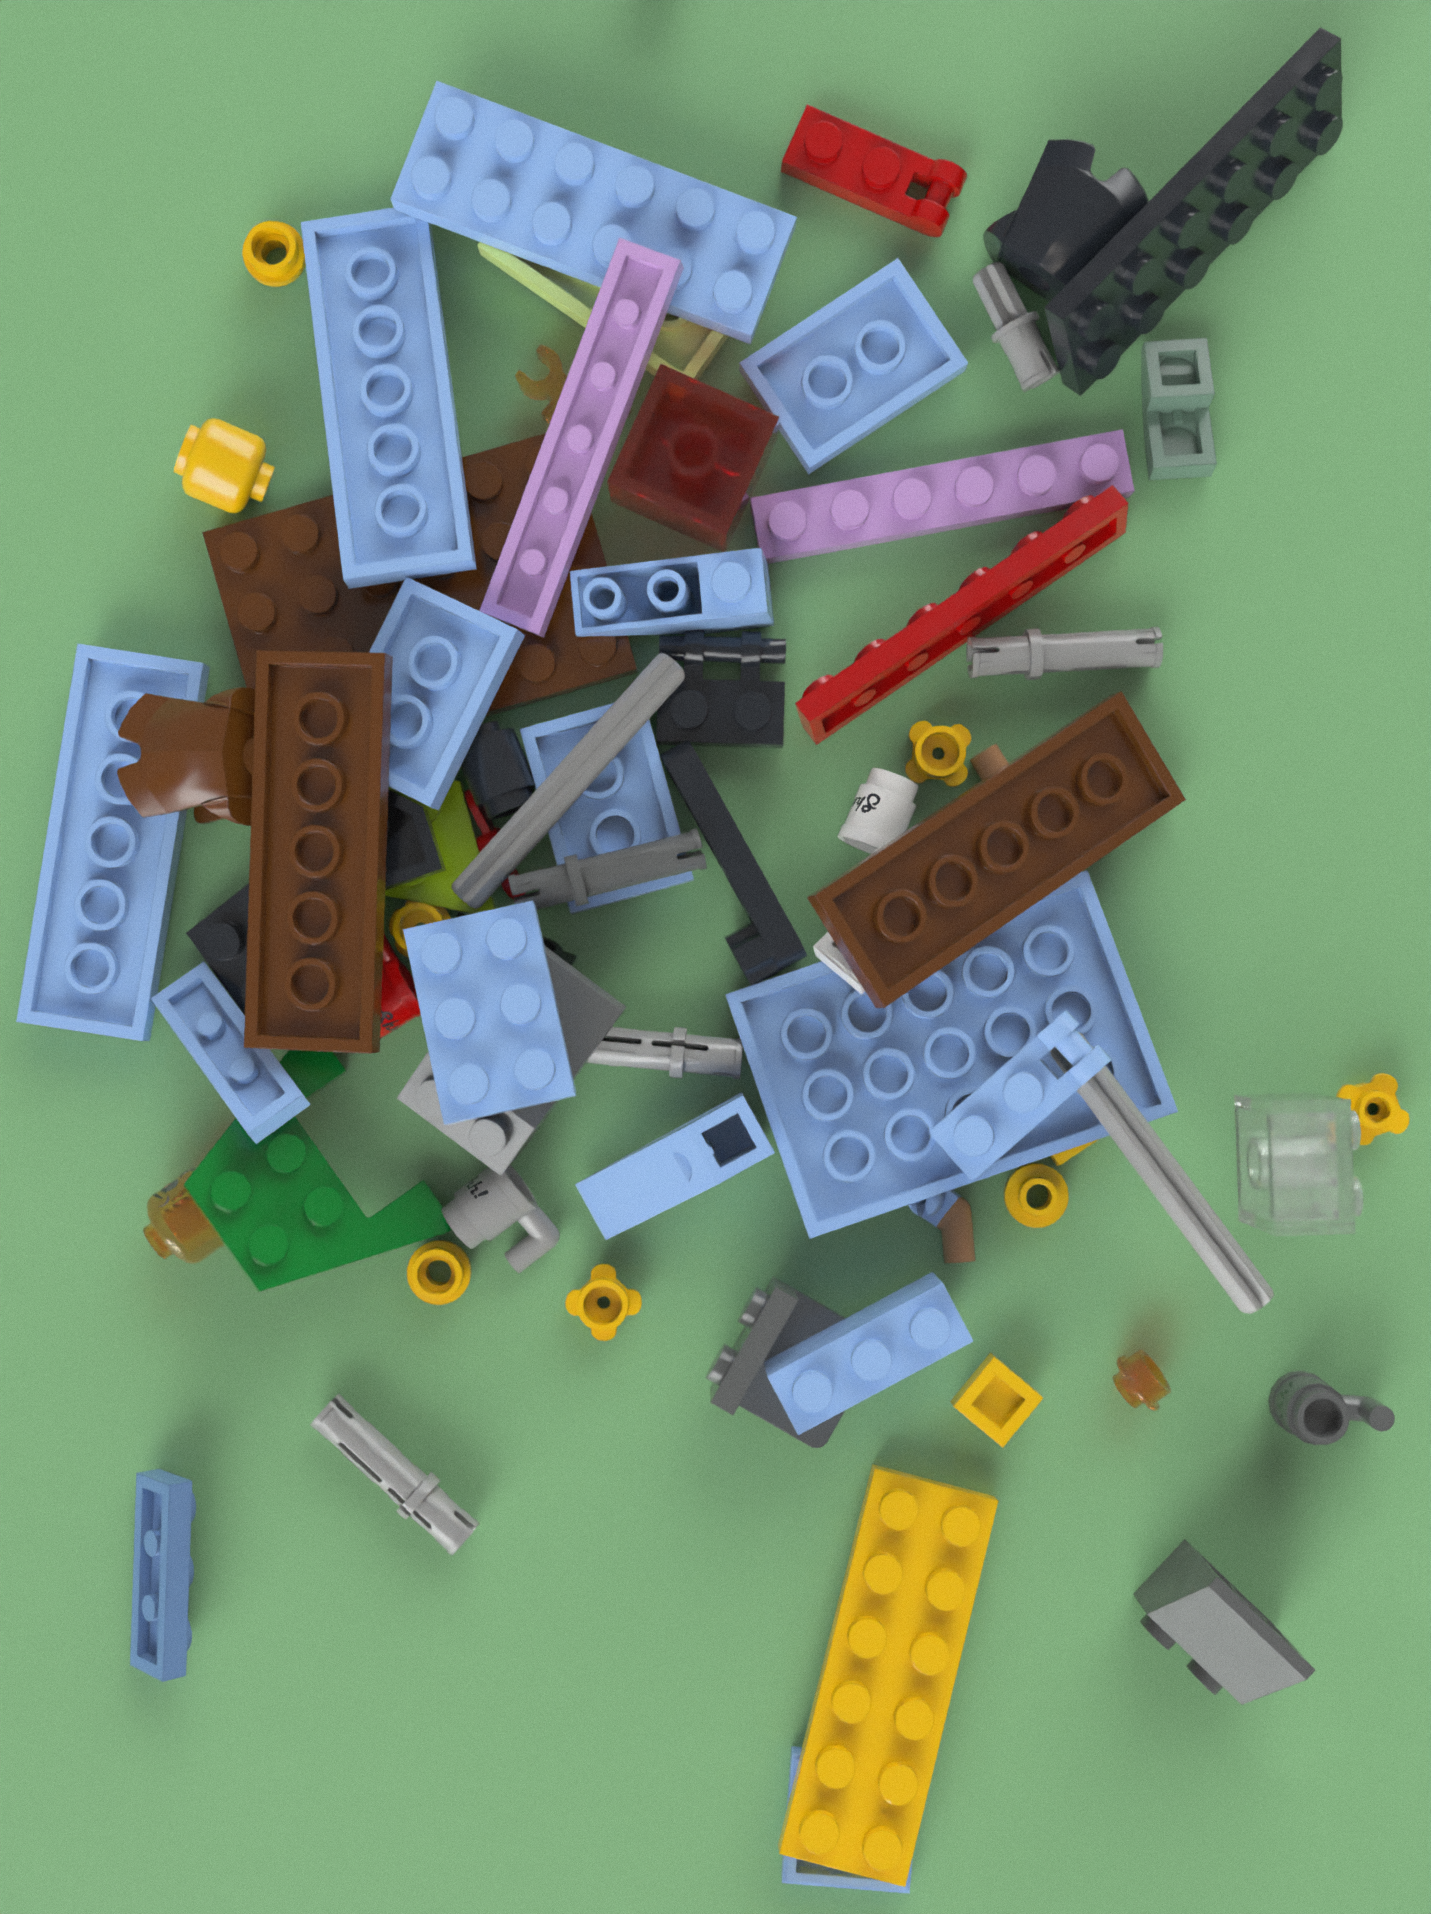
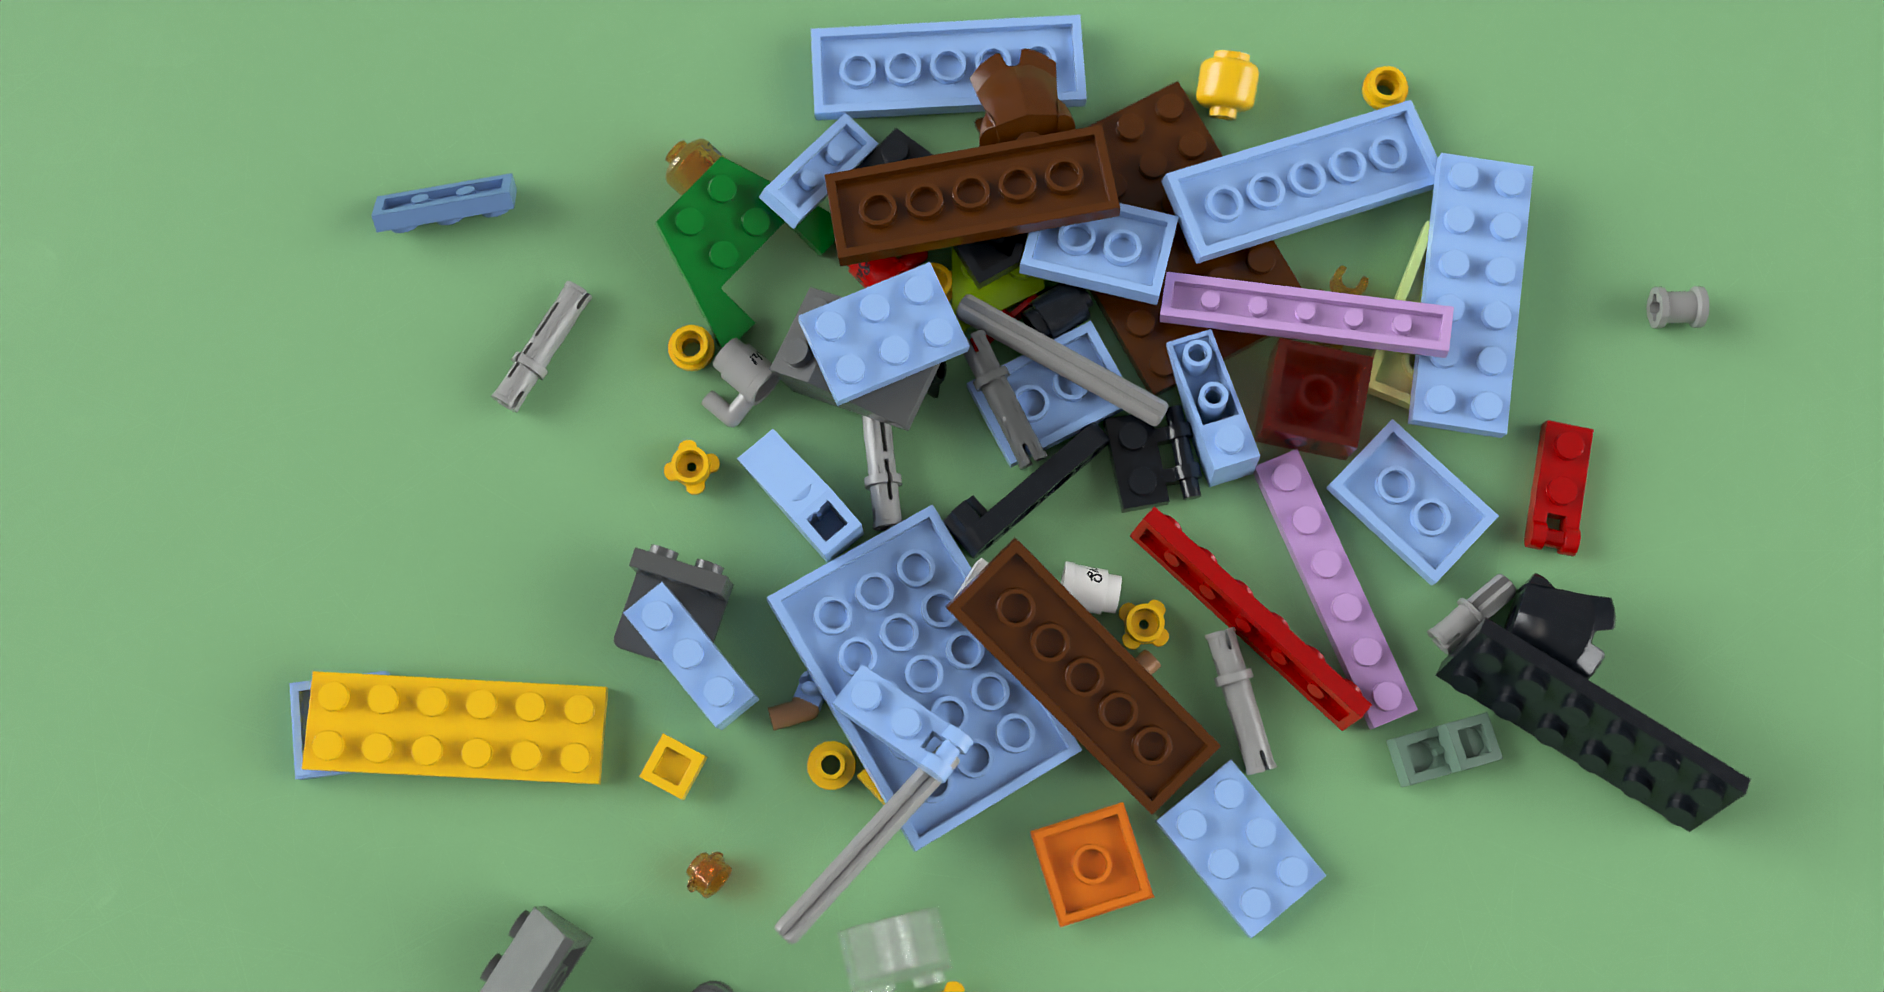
camera: 80 degrees right, 10 degrees down
(1229, 890) = (1091, 864): none -> orange plate
(1246, 698) = (1240, 848): none -> light blue plate

